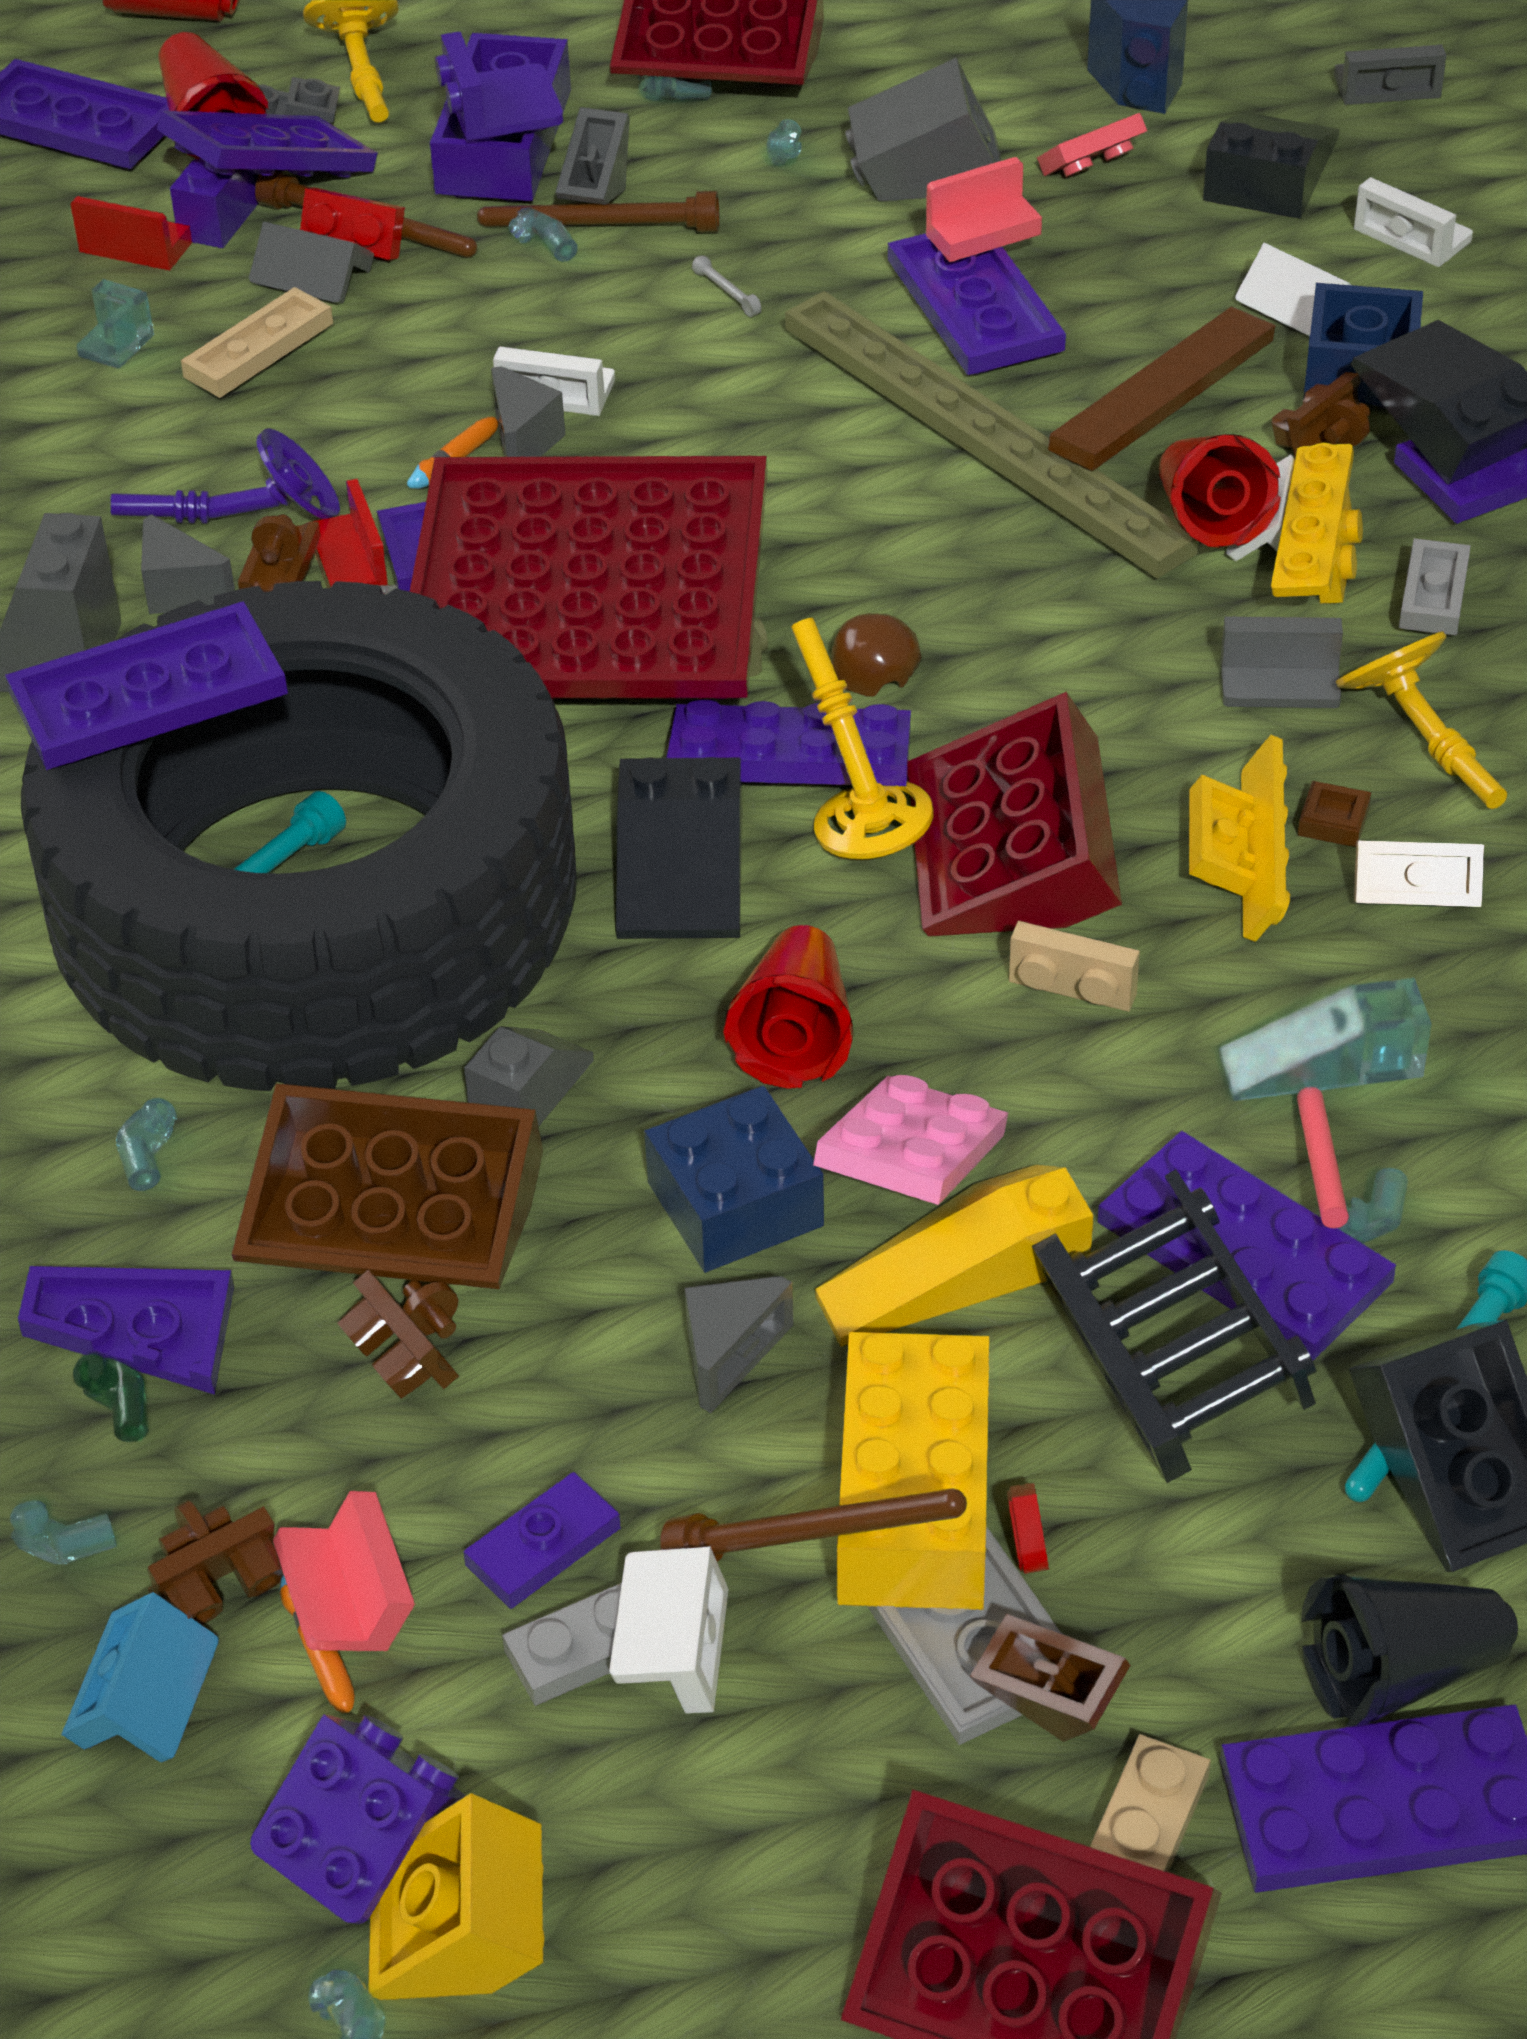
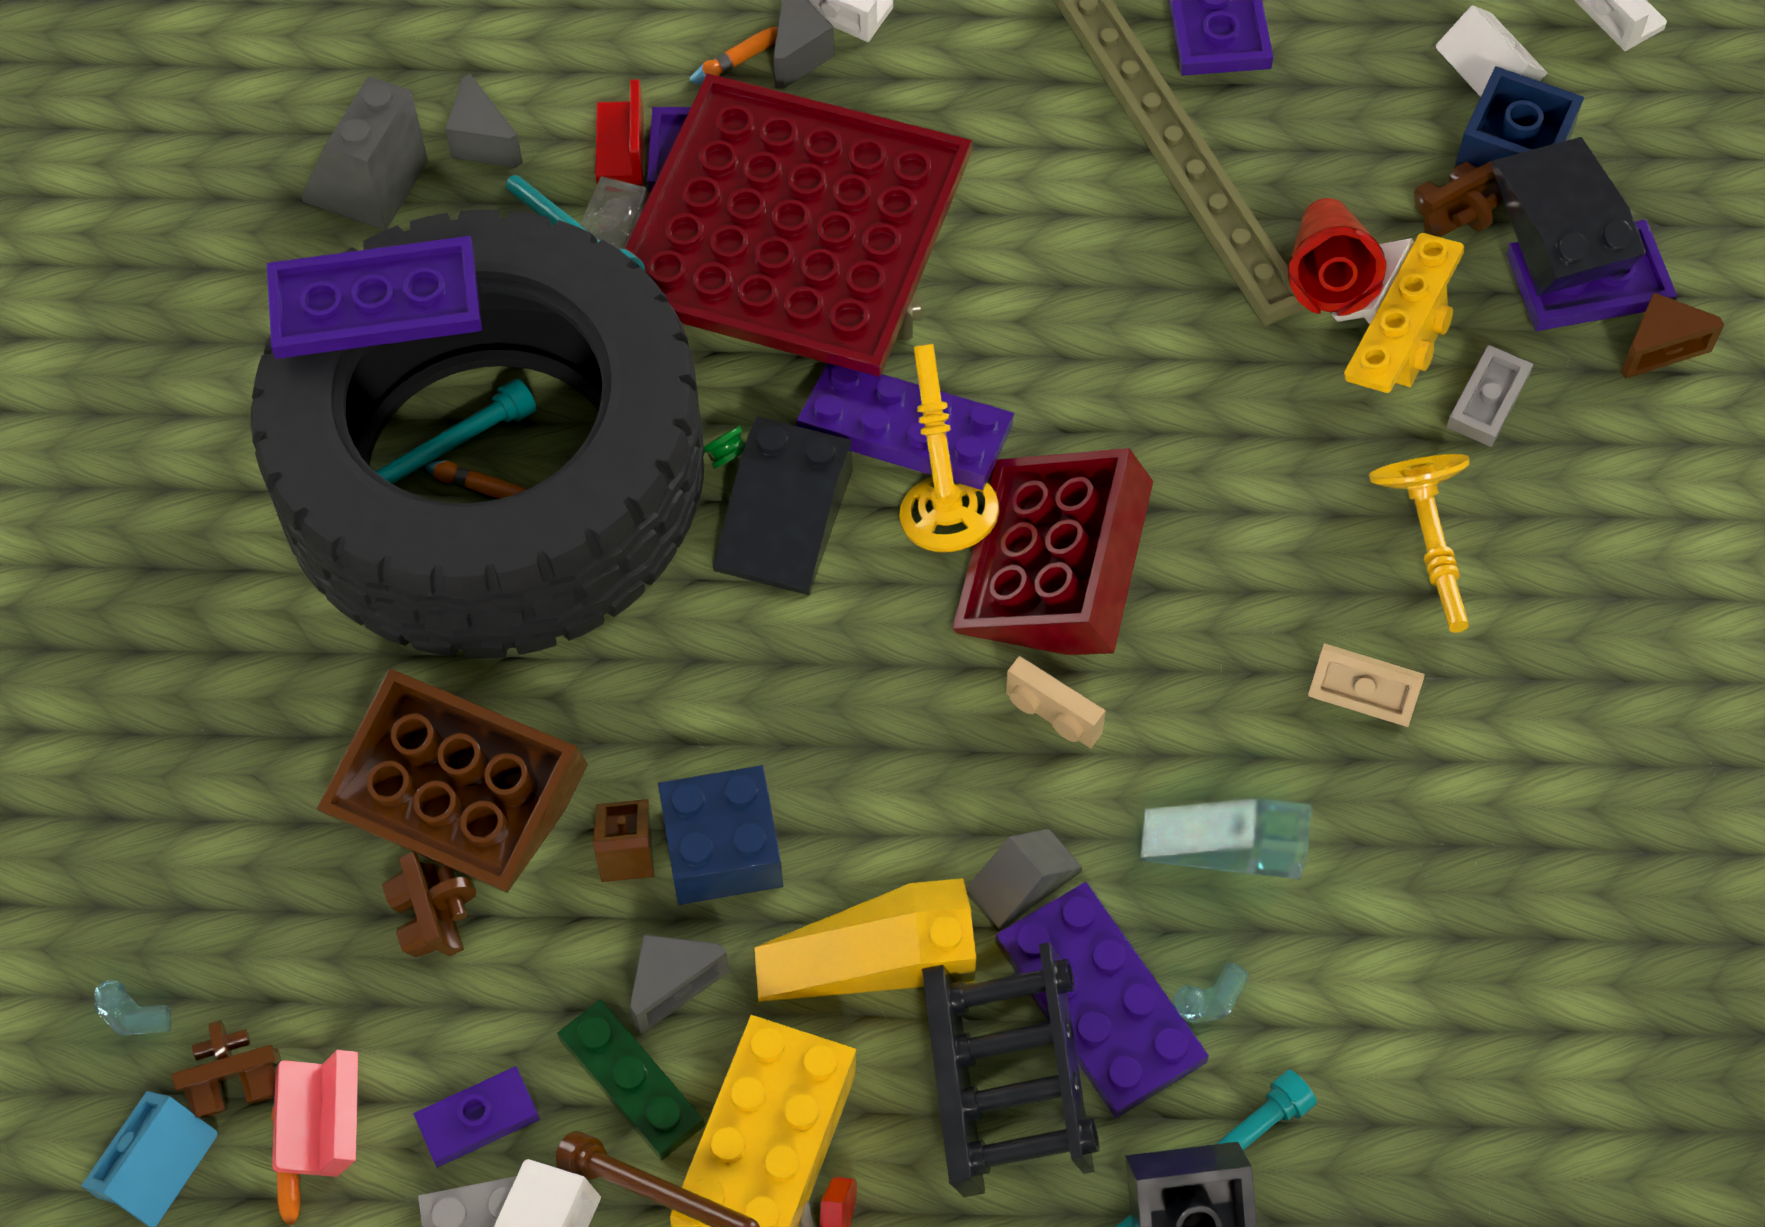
camera: 15 degrees right, 15 degrees up
(117, 1389) = (210, 894): clear green arm -> none
(141, 1139) = (291, 671): clear light blue arm -> none
(143, 1317) = (239, 835): dark purple wing -> none
(279, 552) = (559, 139): reddish brown hips -> none
(290, 481) = (586, 62): dark purple dish -> none
(525, 1070) = (595, 690): dark grey slope -> none
(592, 807) = (725, 447): none -> green bush
(620, 1218) = (623, 840): none -> reddish brown slope
(716, 1454) = (631, 1079): none -> dark green plate
(792, 1012) = (818, 686): red cone -> none
(874, 652) = (1005, 347): reddish brown hair -> none
(912, 1138) = (865, 840): bright pink plate -> none
(1105, 1143) = (1021, 876): none -> dark grey slope
(1160, 388) = (1334, 133): reddish brown tile -> none
(1241, 837) = (1233, 609): yellow bracket -> none
(1281, 662) = (1332, 442): dark grey panel -> none
(1322, 1158) = (1186, 940): coral bar -> none
(1334, 813) = (1323, 601): reddish brown tile -> none

